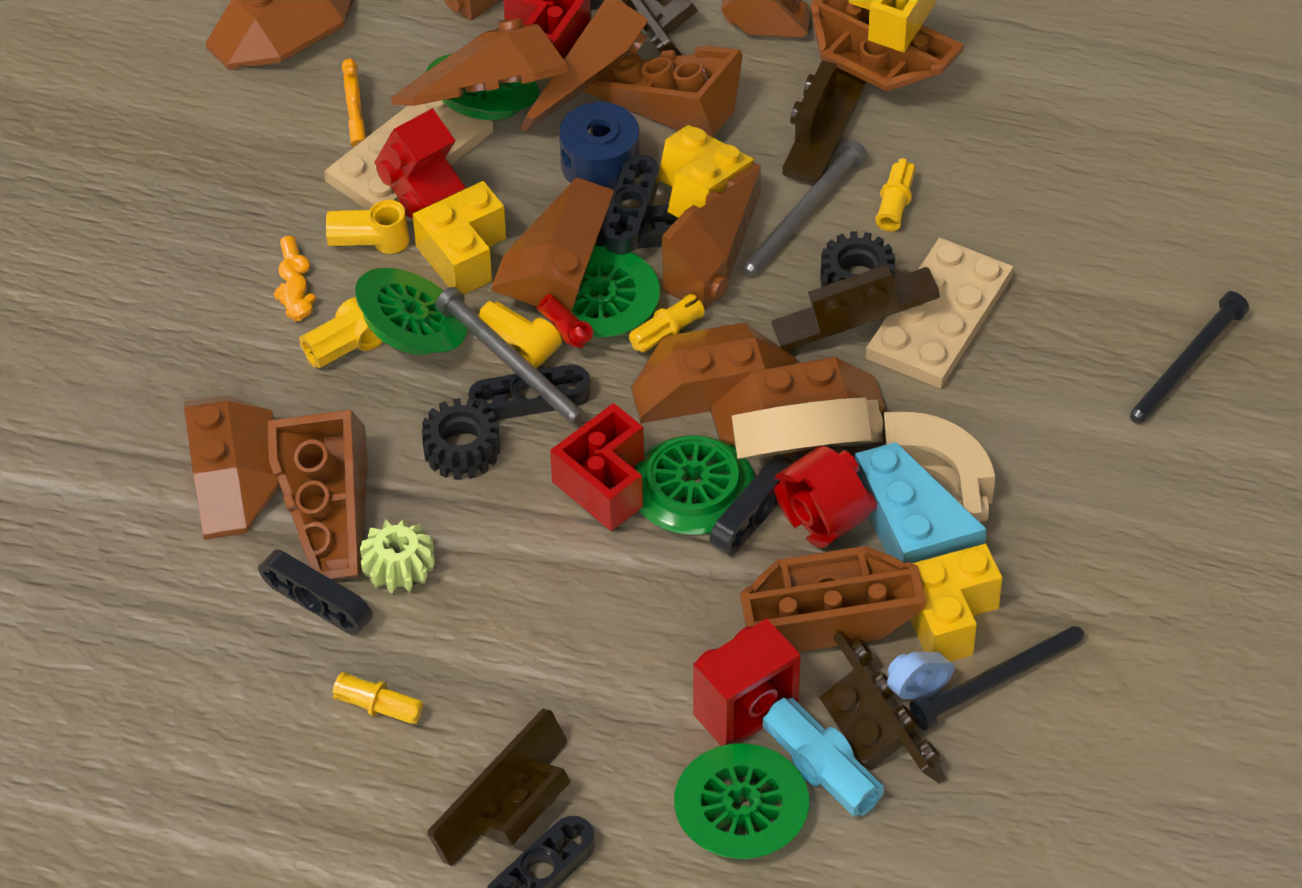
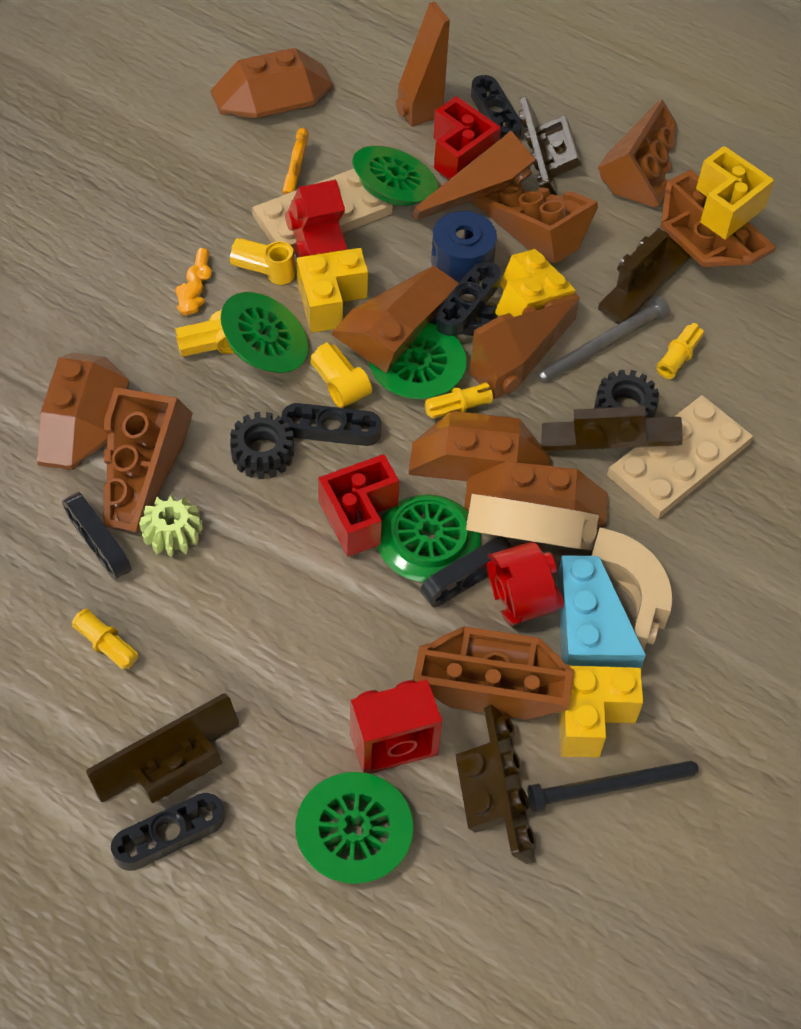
camera: 15 degrees right, 5 degrees up
(452, 303) = (298, 335): flat silver bar -> none
(494, 57) = (415, 156): dark orange wedge -> none
(573, 331) = (381, 382): red arm -> none
(823, 757) = (437, 810): medium azure piece -> none
(919, 674) = (542, 765): light blue plate -> none

